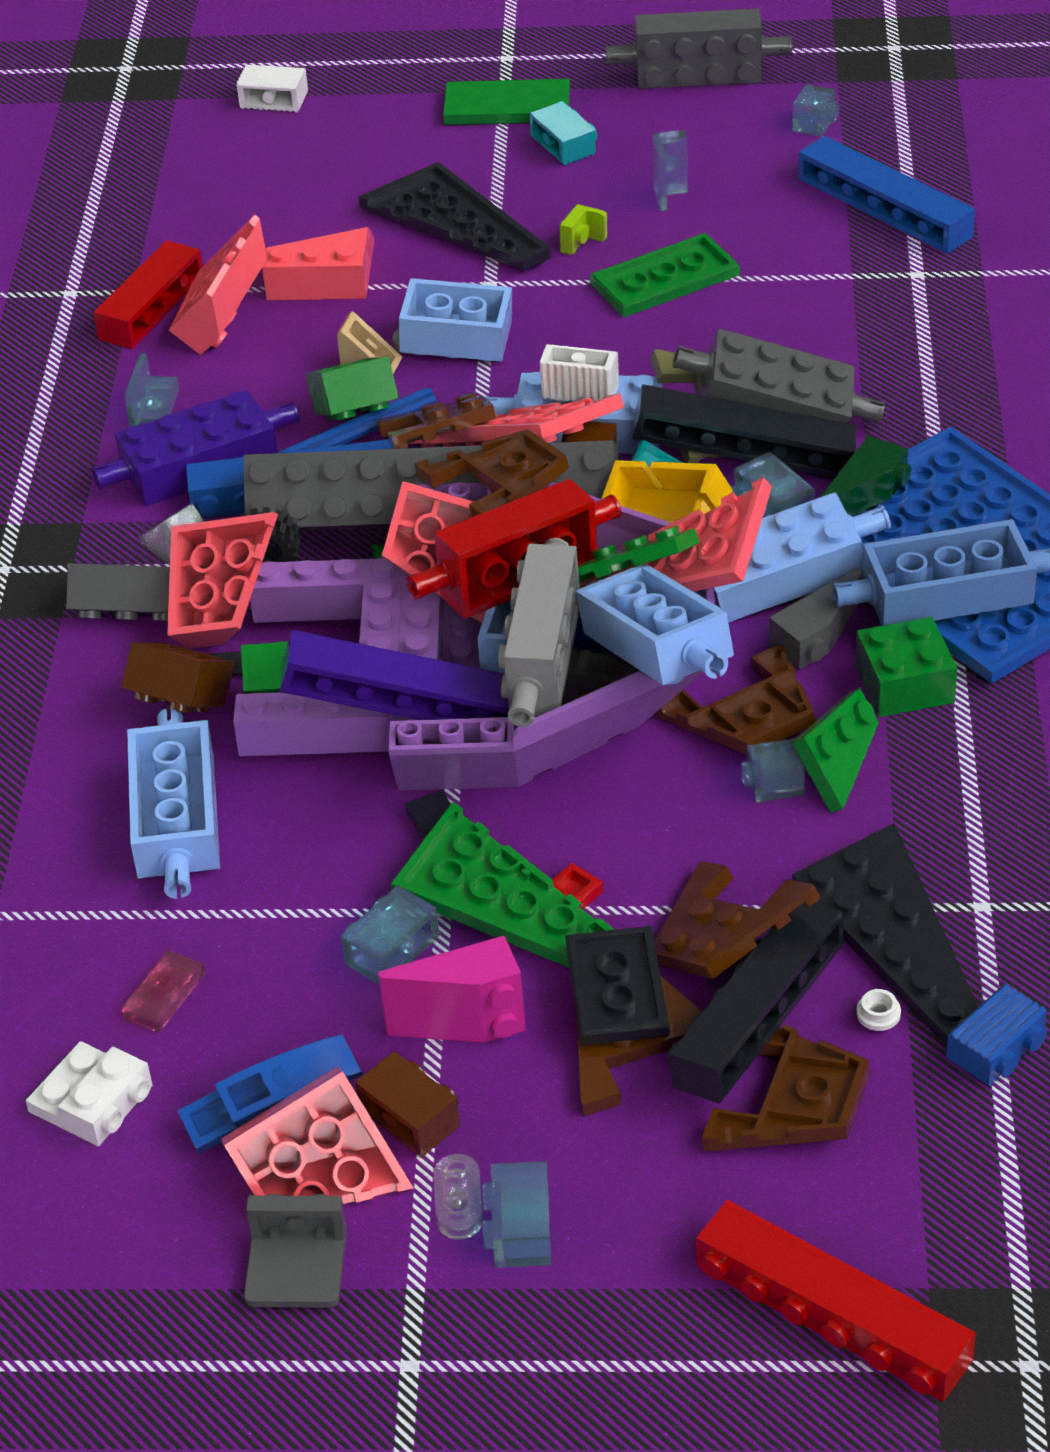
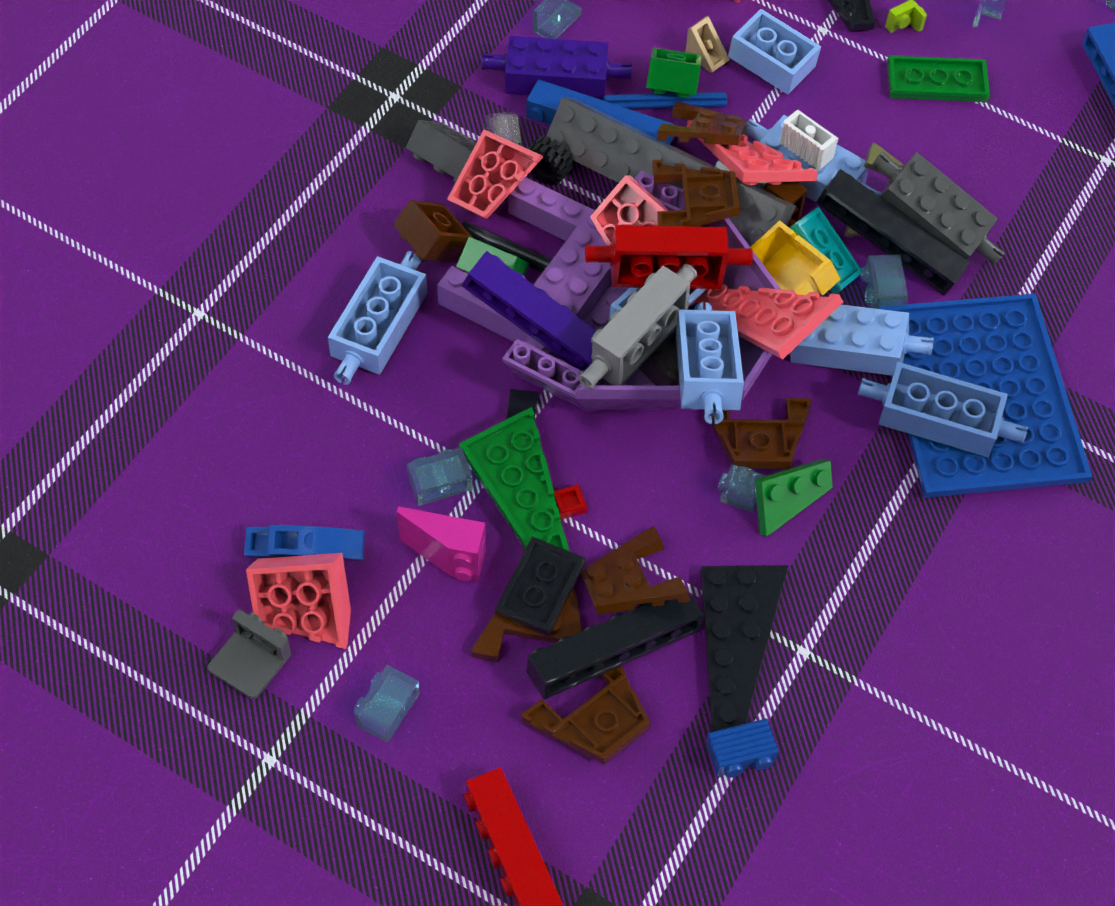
camera: 25 degrees right, 15 degrees up
(91, 1091) = (214, 485): white plate -> none
(163, 991) = (295, 440): clear pink plate -> none
(409, 1103) = (375, 594): reddish brown brick -> none
(458, 1192) = (365, 667): clear plate -> none
(637, 552) = (735, 300): green wing -> none
(811, 624) = (838, 395): dark grey slope -> none
(871, 475) = (946, 308): dark green slope -> none
(878, 1010) = (686, 681): white plate -> none
(906, 666) = (875, 458): green brick -> none

